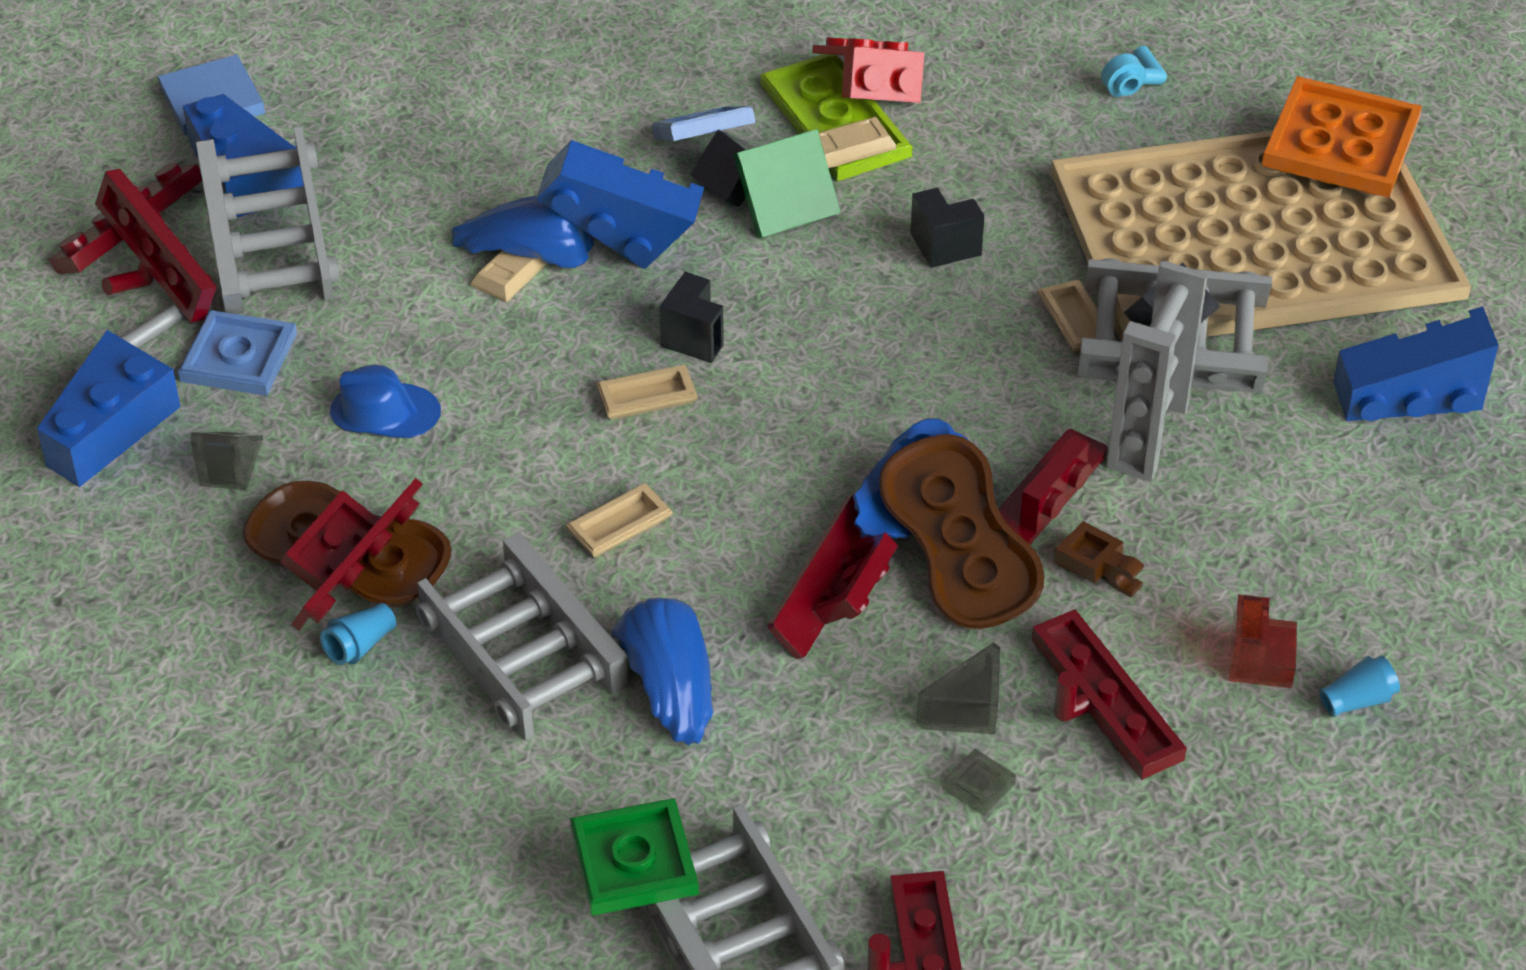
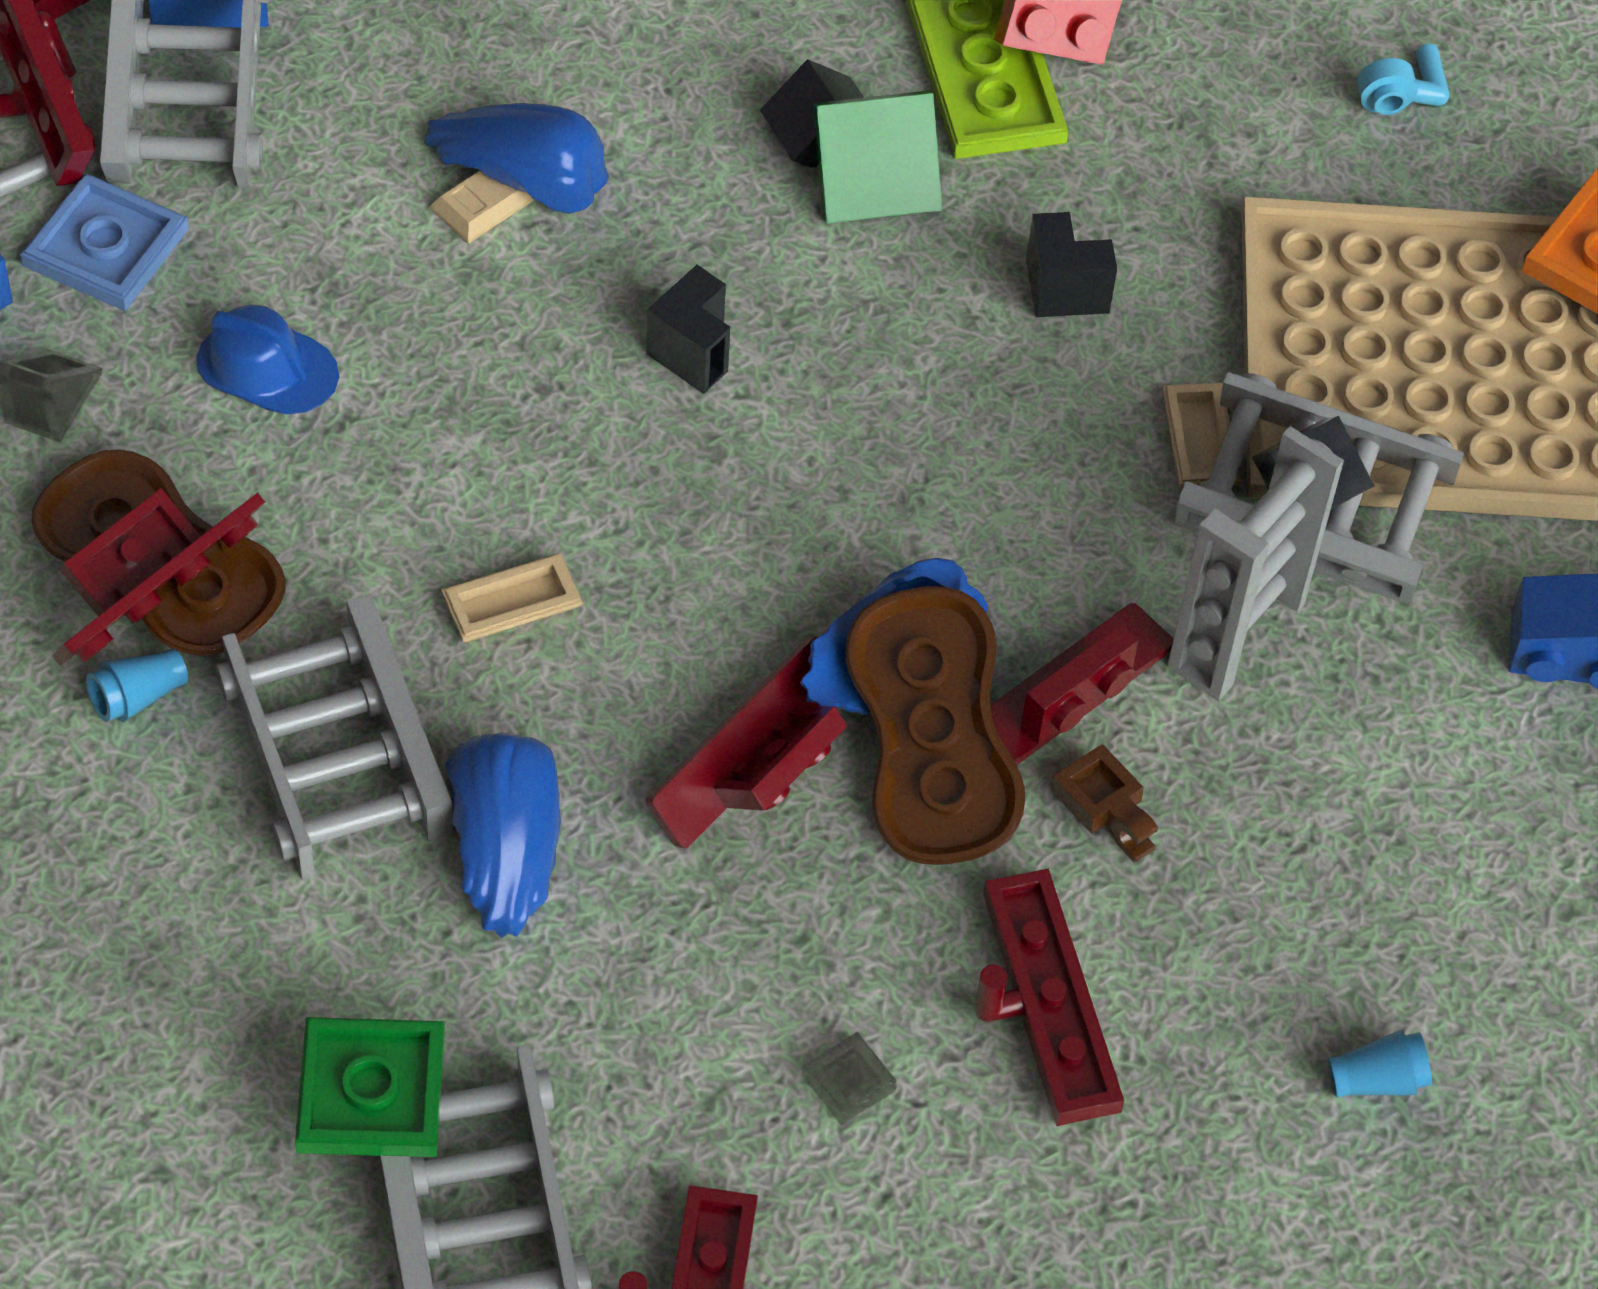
camera: 10 degrees right, 10 degrees up
(618, 204) = (639, 145): blue wedge -> none
(647, 392) = (605, 419): tan tile -> none
(703, 122) = (797, 39): tile -> none
(855, 142) = (986, 111): tan tile -> none
(964, 696) = (867, 958): clear smoke slope -> none
(1260, 646) = (1274, 978): clear red piece -> none

